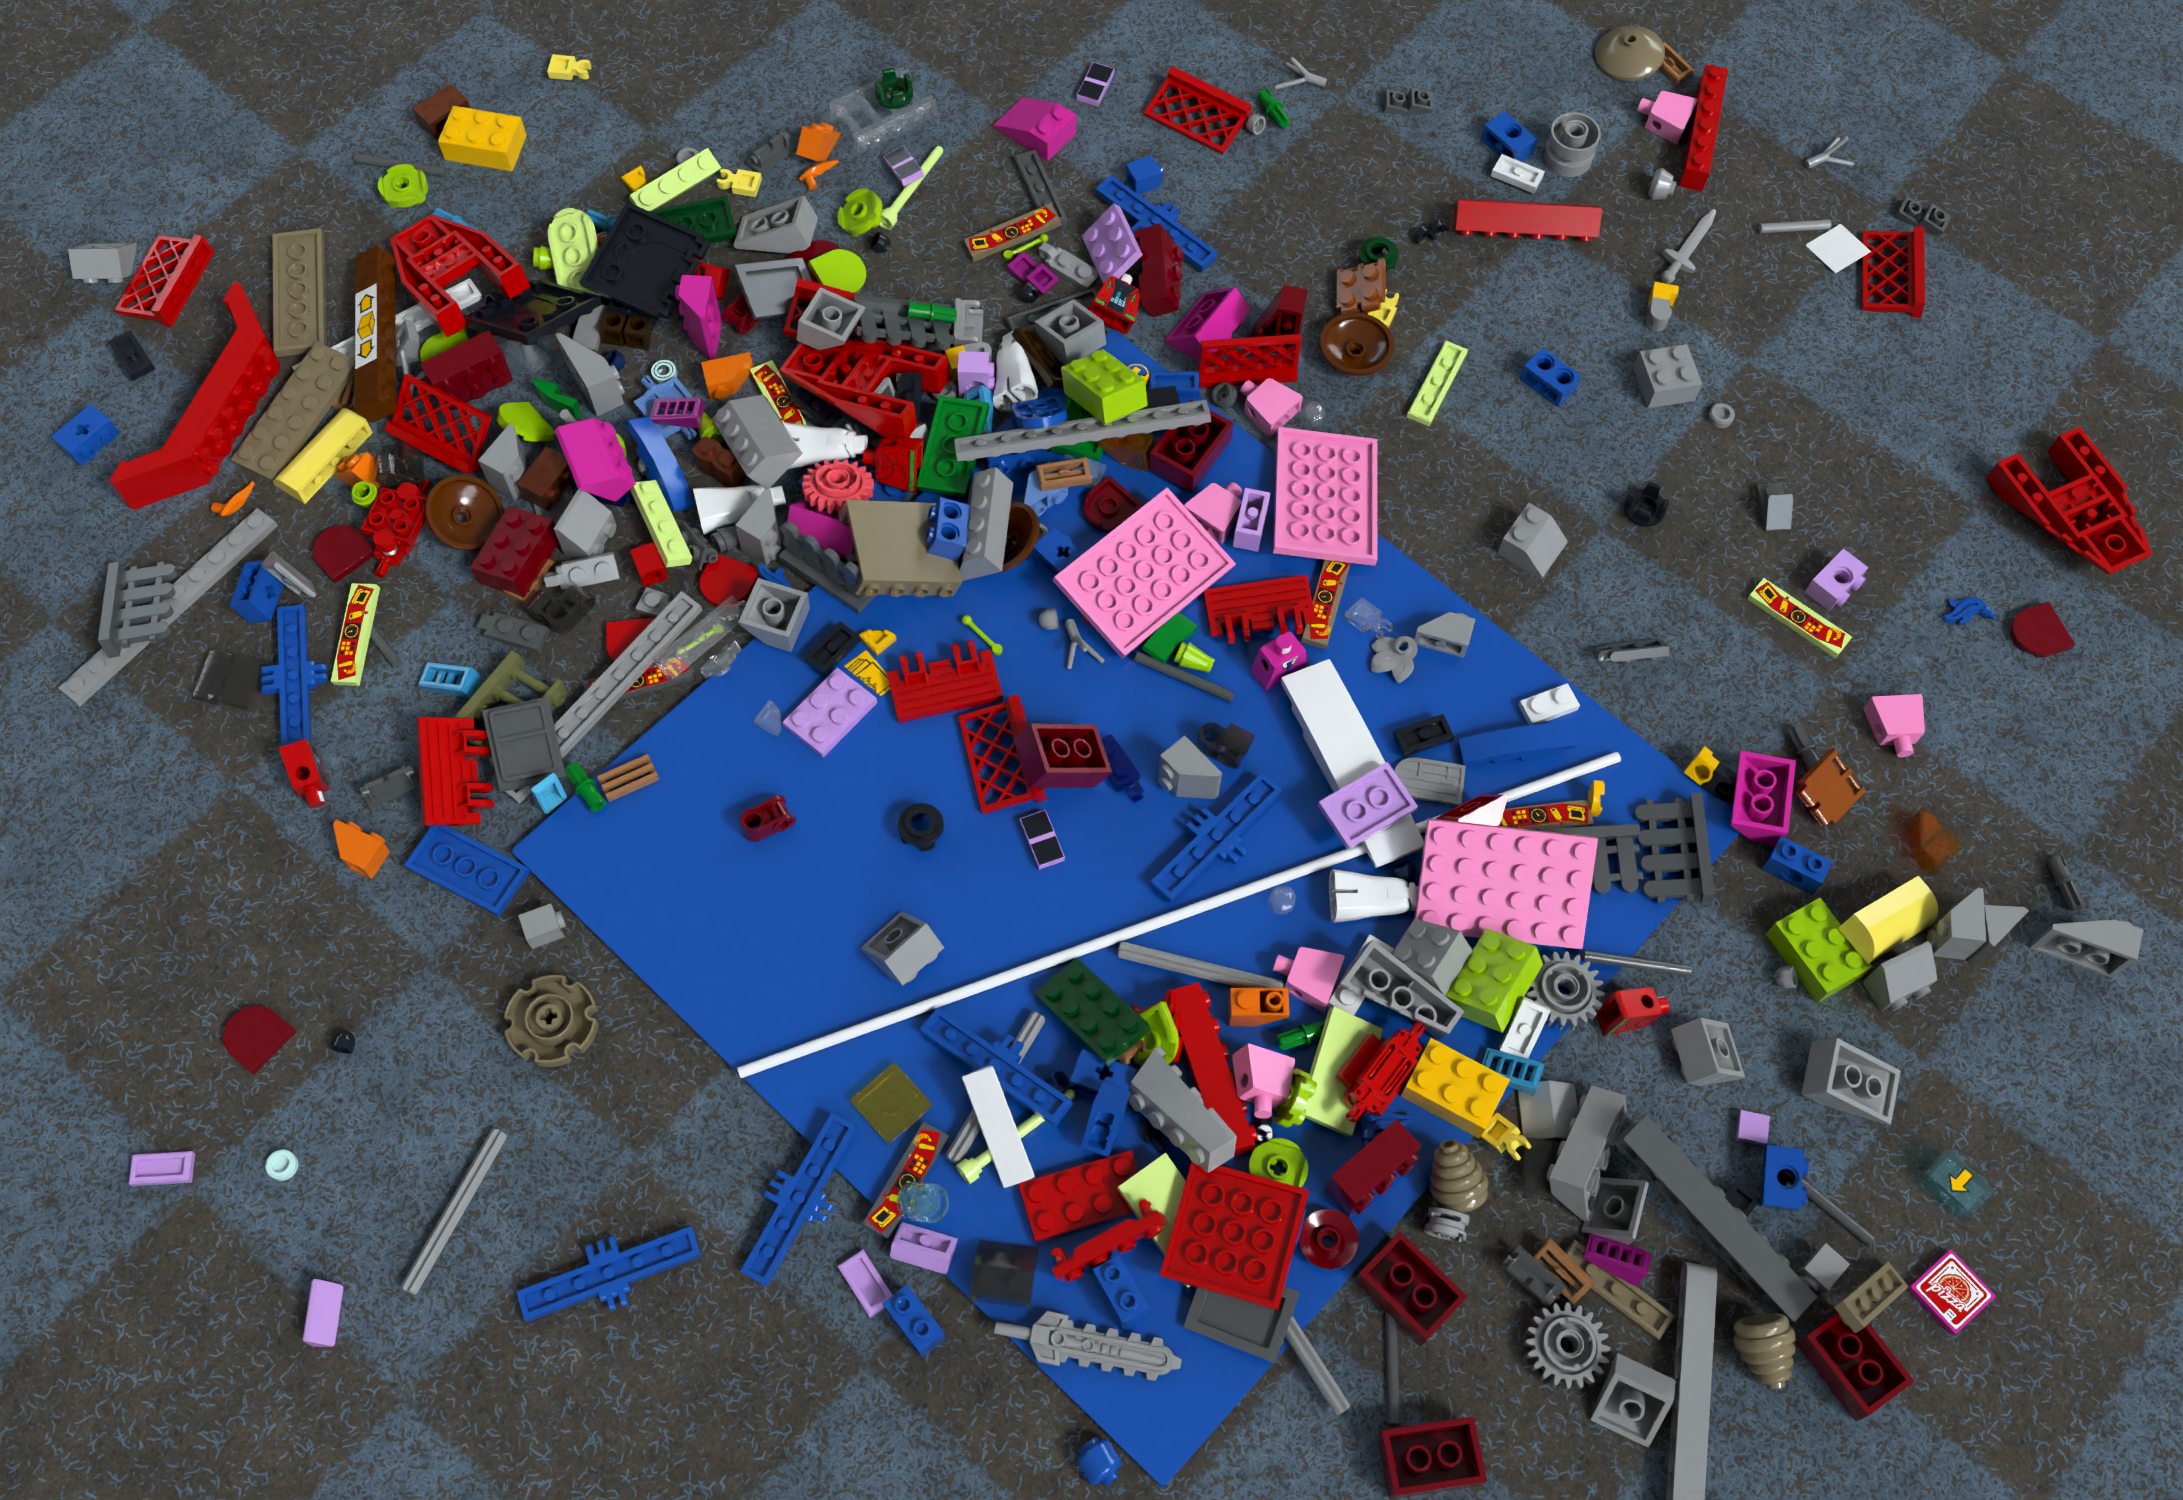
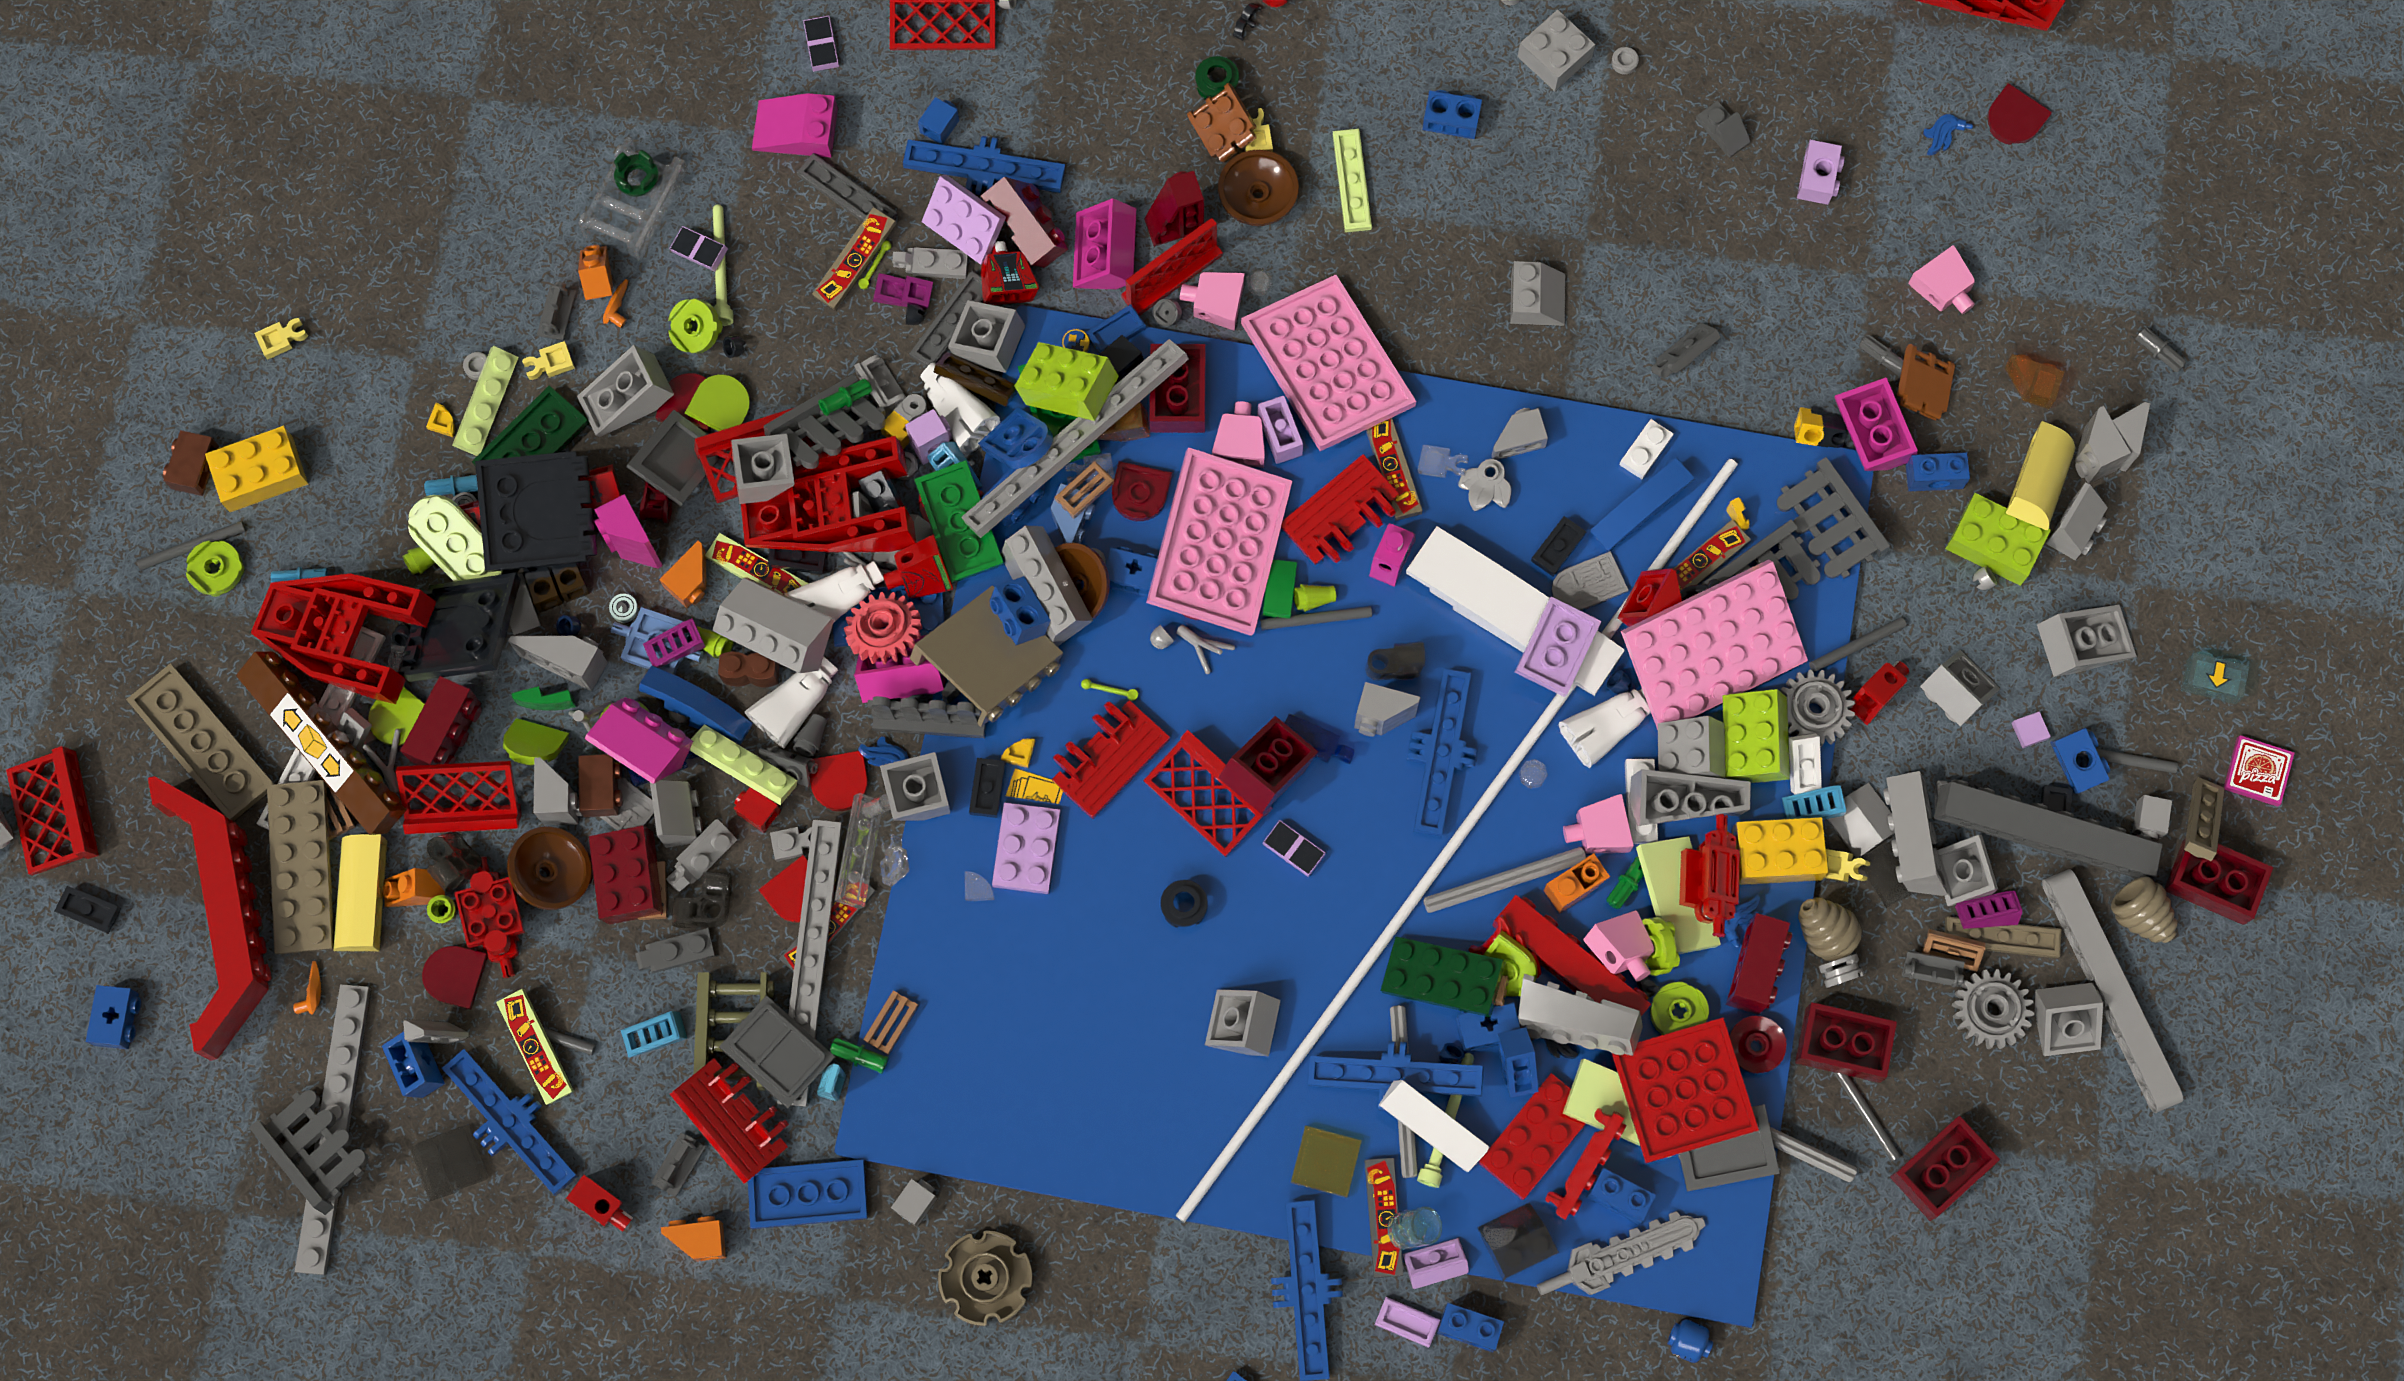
camera: 30 degrees left, 10 degrees up
(759, 530) = (841, 713): light grey slope -> none
(768, 817) = (1047, 978): dark red piece -> none
(1648, 495) = (1612, 183): black piece -> none
(1799, 618) = (1807, 228): tile -> none
(2094, 945) = (2220, 395): light grey slope -> none

